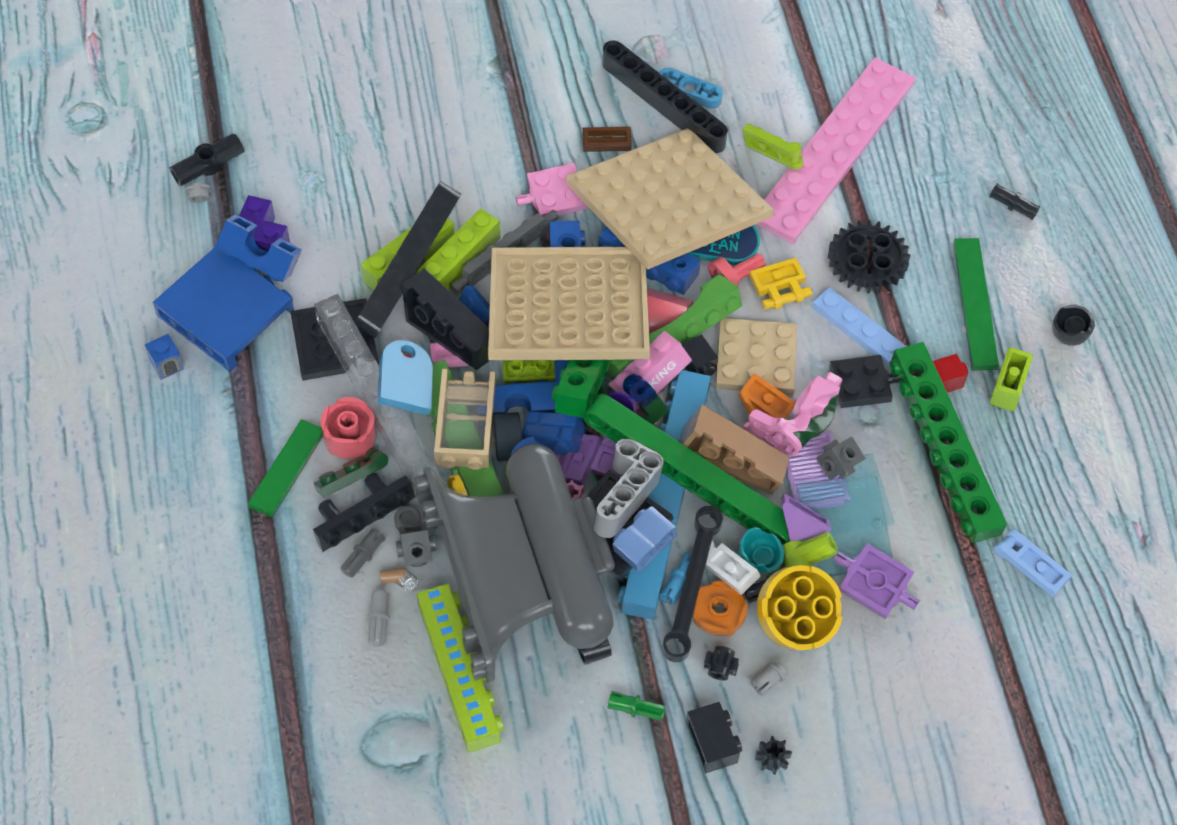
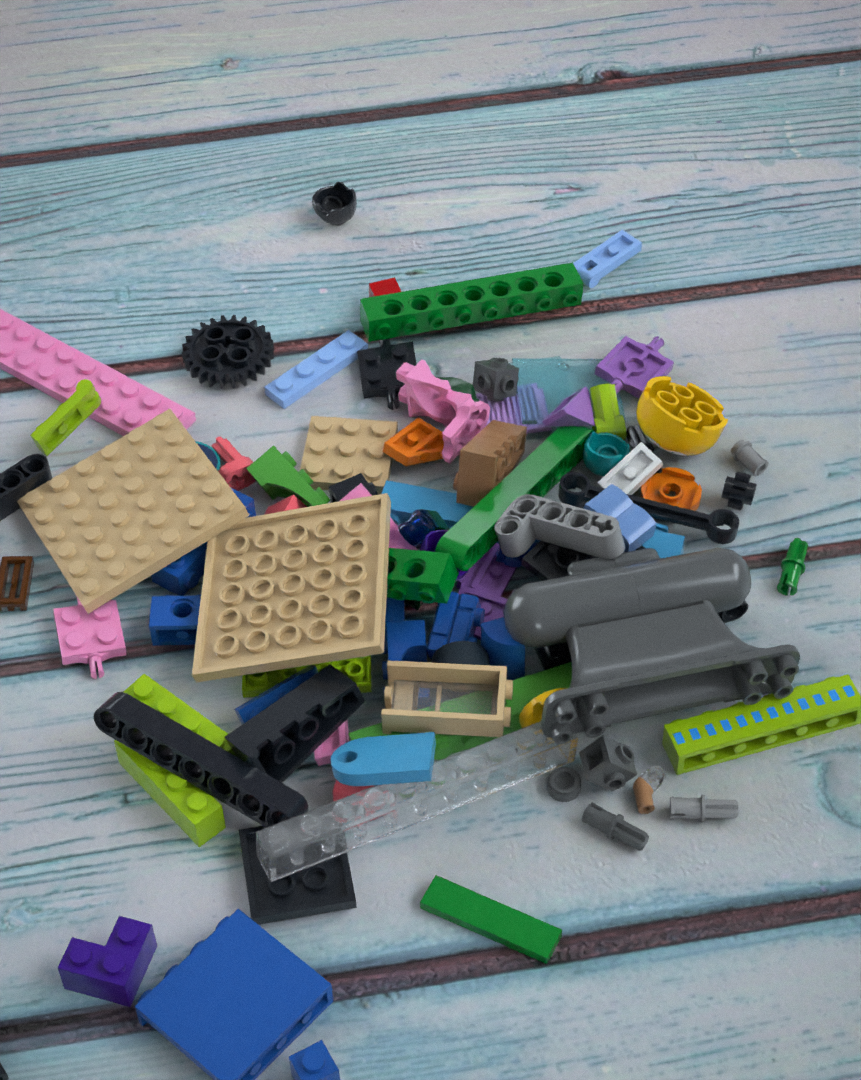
camera: 85 degrees left, 10 degrees down
(198, 192) = (26, 1051): light grey plate -> none
(239, 242) = (142, 966): blue arch -> none
(348, 428) = (443, 839): coral brick -> none
(351, 472) = (505, 840): dark green plate -> none
(356, 518) = (555, 810): black plate -> none
(521, 237) = (171, 676): dark grey plate -> none
(713, 737) = (823, 502): black brick -> none
(778, 277) = (247, 430): yellow plate -> none
(779, 751) = (837, 455): black gear -> none
(975, 304) = (293, 277): green tile -> none
(1011, 379) = (399, 249): lime brick -> none
(1014, 201) = (169, 236): black pin -> none

